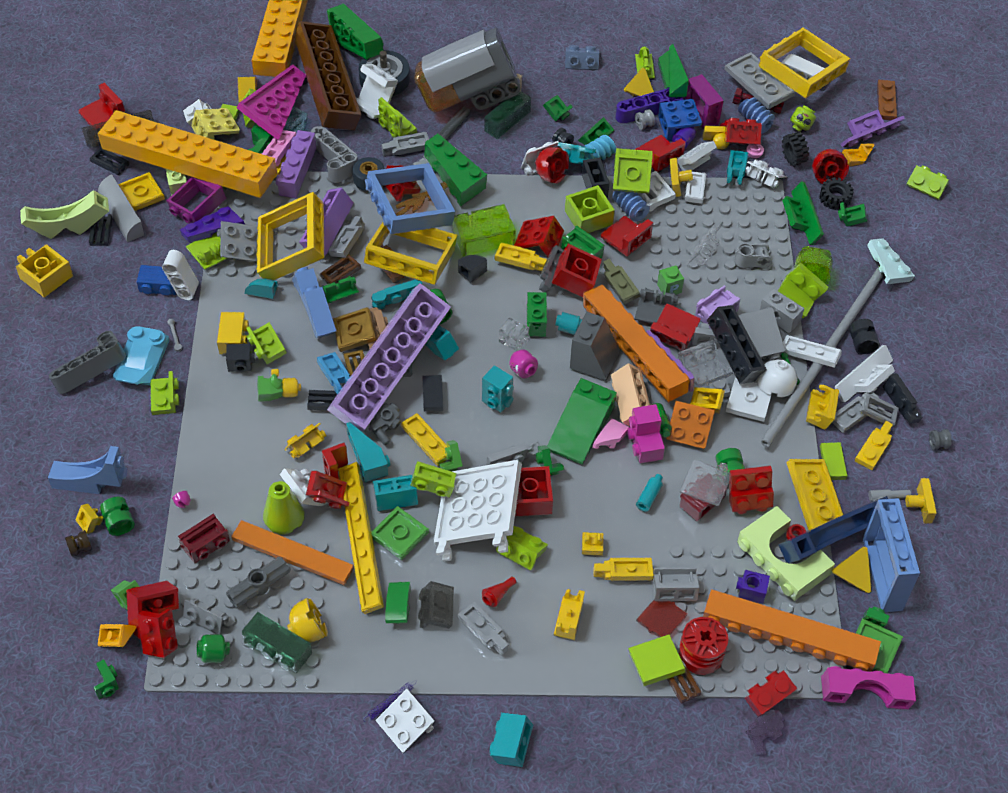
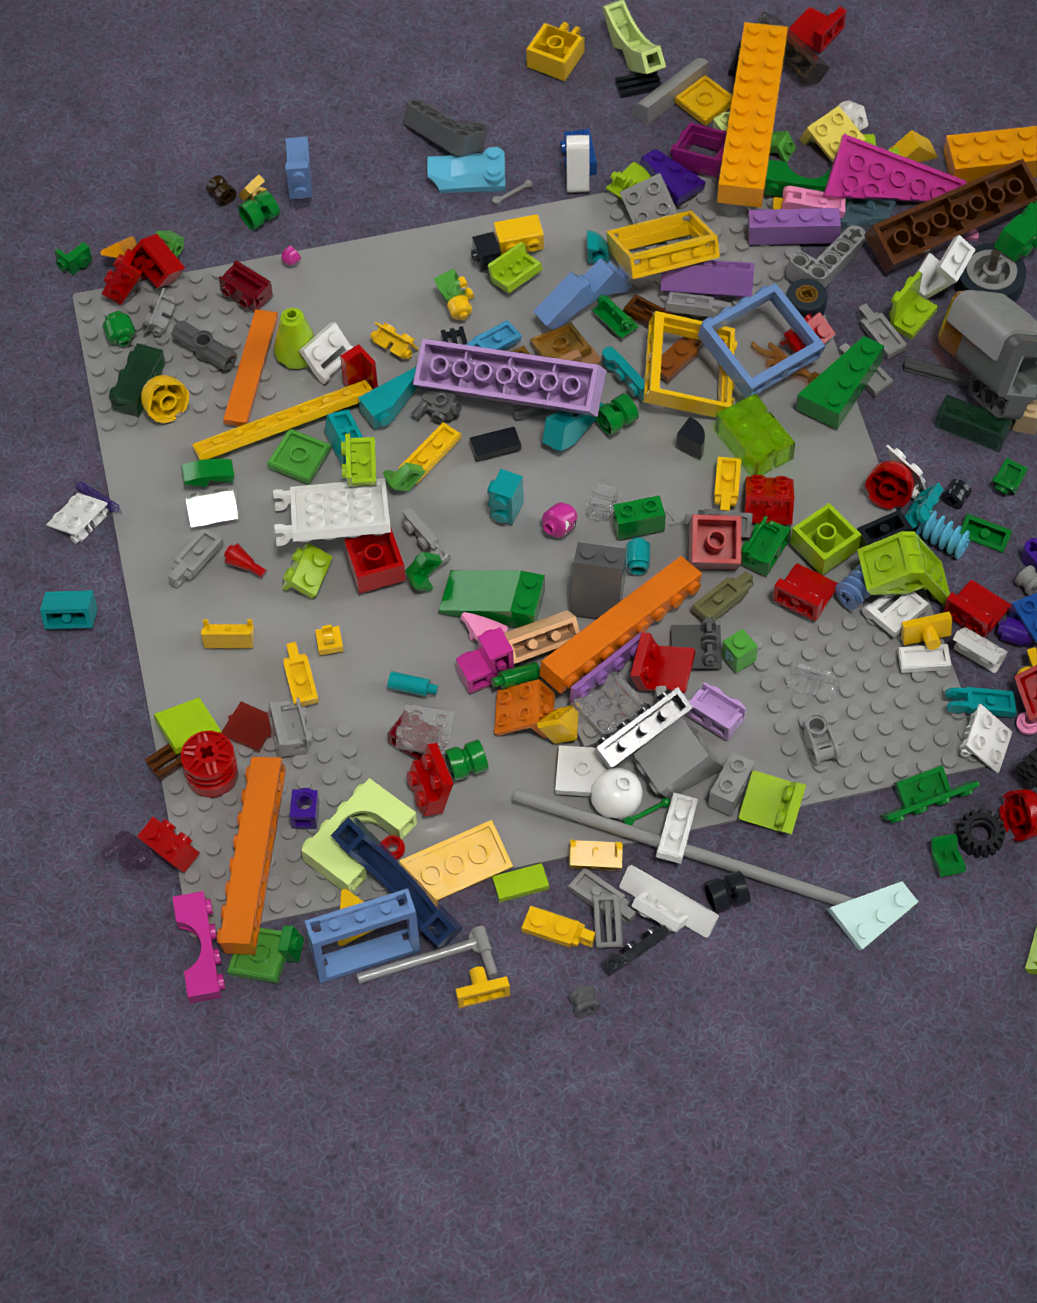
camera: 80 degrees right, 5 degrees up
(163, 395) = (426, 206): lime bracket -> none
(327, 490) = (322, 370): red bracket -> none
(817, 261) = (822, 813): clear neon green brick -> none

